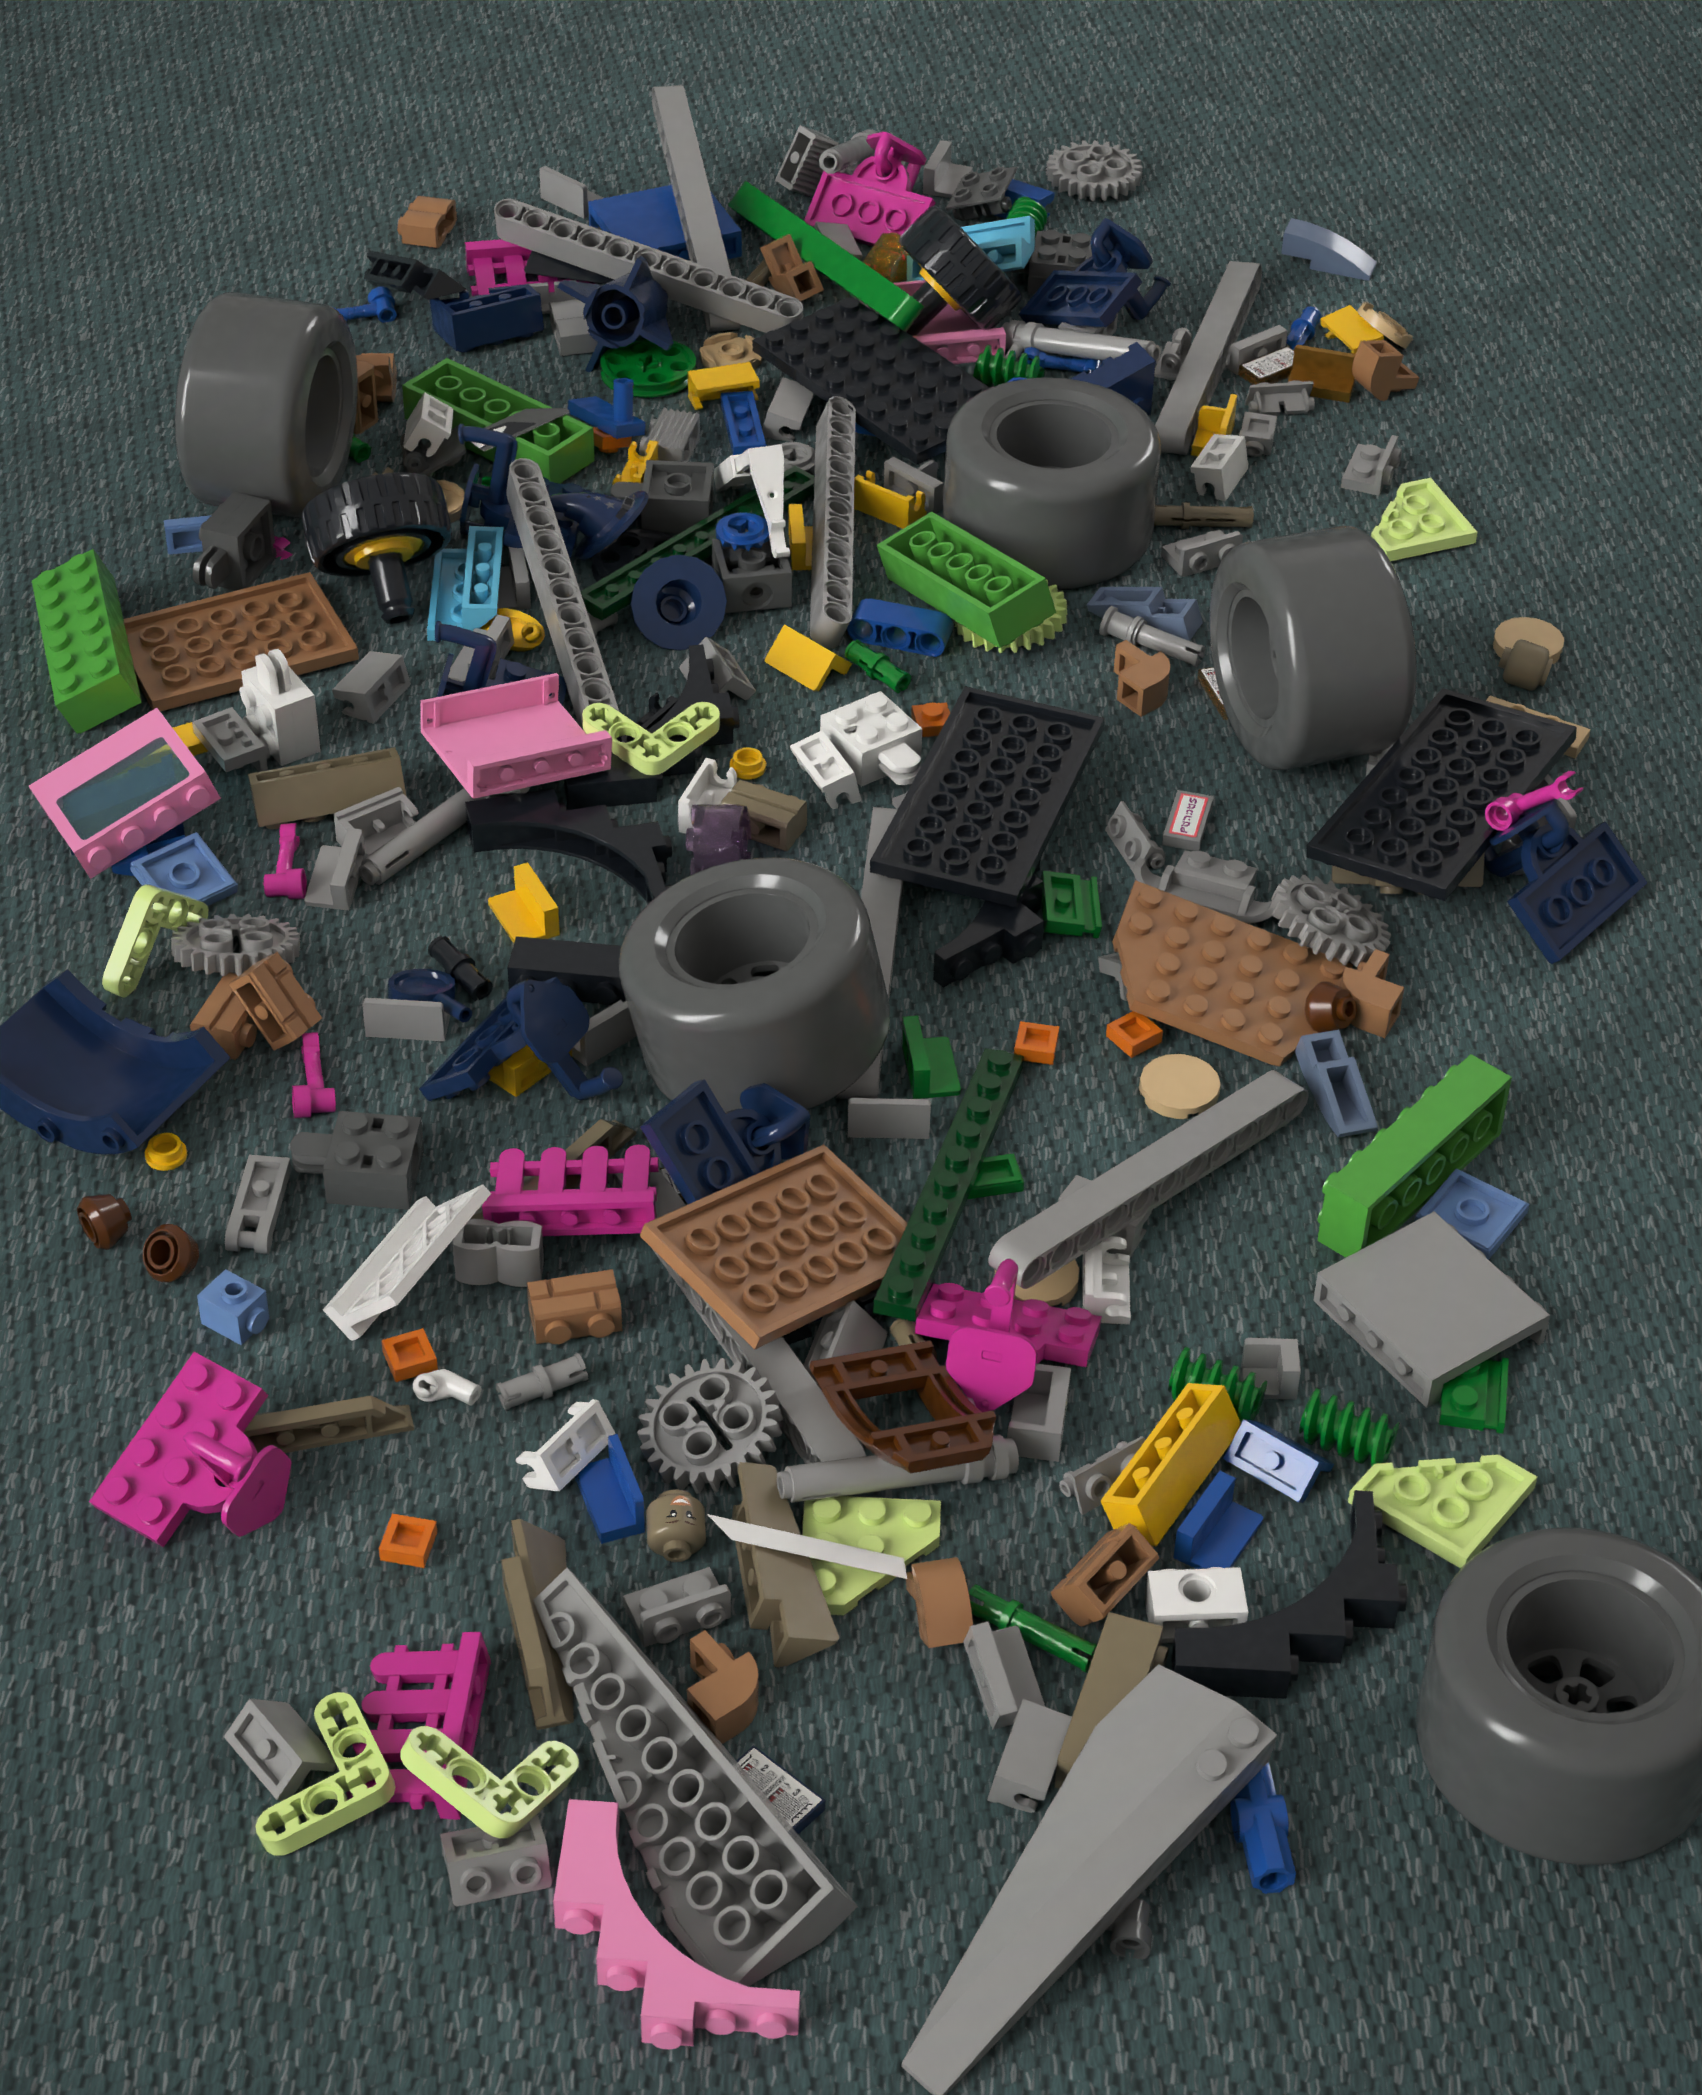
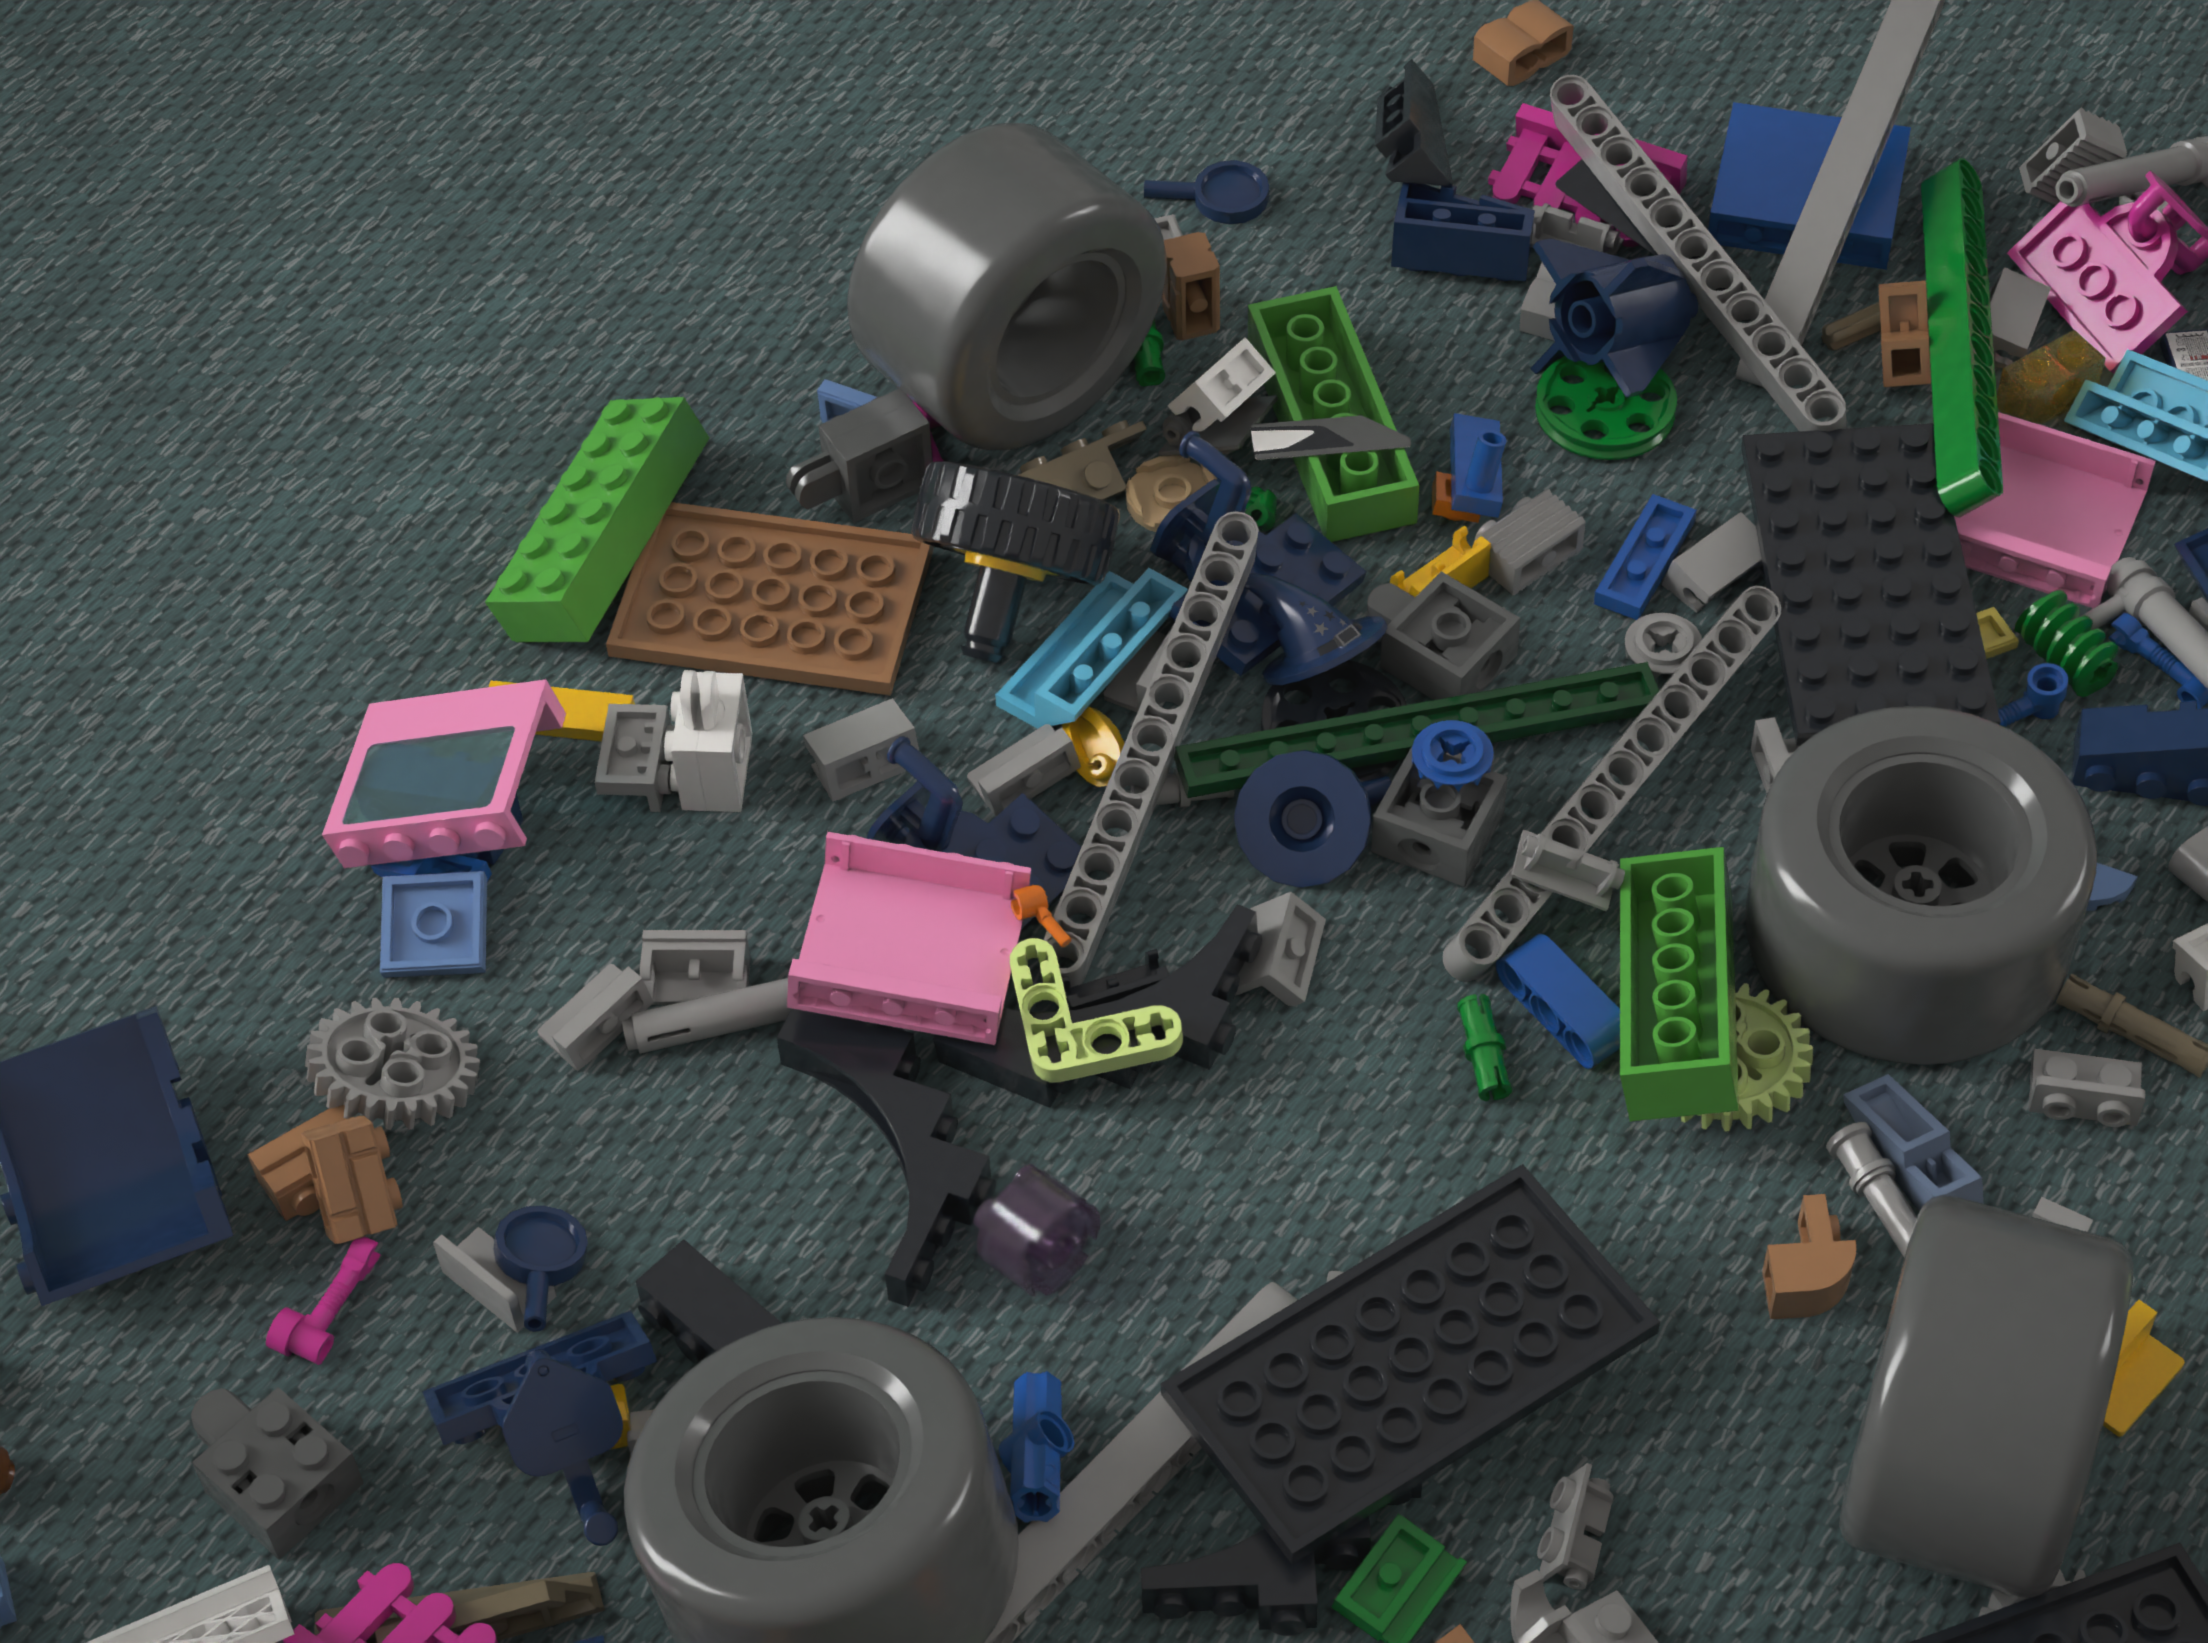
camera: 40 degrees right, 10 degrees up
(141, 931) = (308, 975): yellowish green beam -> none
(165, 1152) = (99, 1315): yellow plate -> none
(258, 1203) = (123, 1453): light grey plate -> none
(286, 880) = (536, 994): dark pink brick -> none
(323, 786) = (675, 881): dark tan brick -> none
(380, 304) = (1357, 153): blue brick -> none
(385, 374) = (1252, 269): medium nougat brick -> none
(460, 967) = (609, 1239): black pin -> none
(528, 908) = (753, 1193): yellow panel -> none
(565, 192) = (1738, 70): light grey panel -> none
(570, 696) = (1033, 902): none -> orange hand
(704, 789) = (1096, 1146): white hinge -> none
(711, 382) = (1667, 477): yellow hinge -> none
(721, 351) = (1722, 442): tan tile -> none
(748, 763) = (1195, 1116): yellow plate -> none
(764, 470) = (1531, 656): white hinge -> none
(773, 816) = (1141, 1211): dark tan brick -> none
(799, 539) = (1558, 782): yellow panel -> none
(804, 659) = (1408, 983): yellow panel -> none
(826, 768) = (1271, 1184): white hinge -> none
(847, 557) = (1566, 870): none -> light grey hinge
(875, 739) = (1368, 1172): white brick -> none
(886, 503) = (1722, 781): yellow hinge -> none
(930, 717) = (1482, 1165): orange plate -> none
(956, 273) = (2088, 459): black wheel -> none
(1187, 820) = (1677, 1535): tile -> none

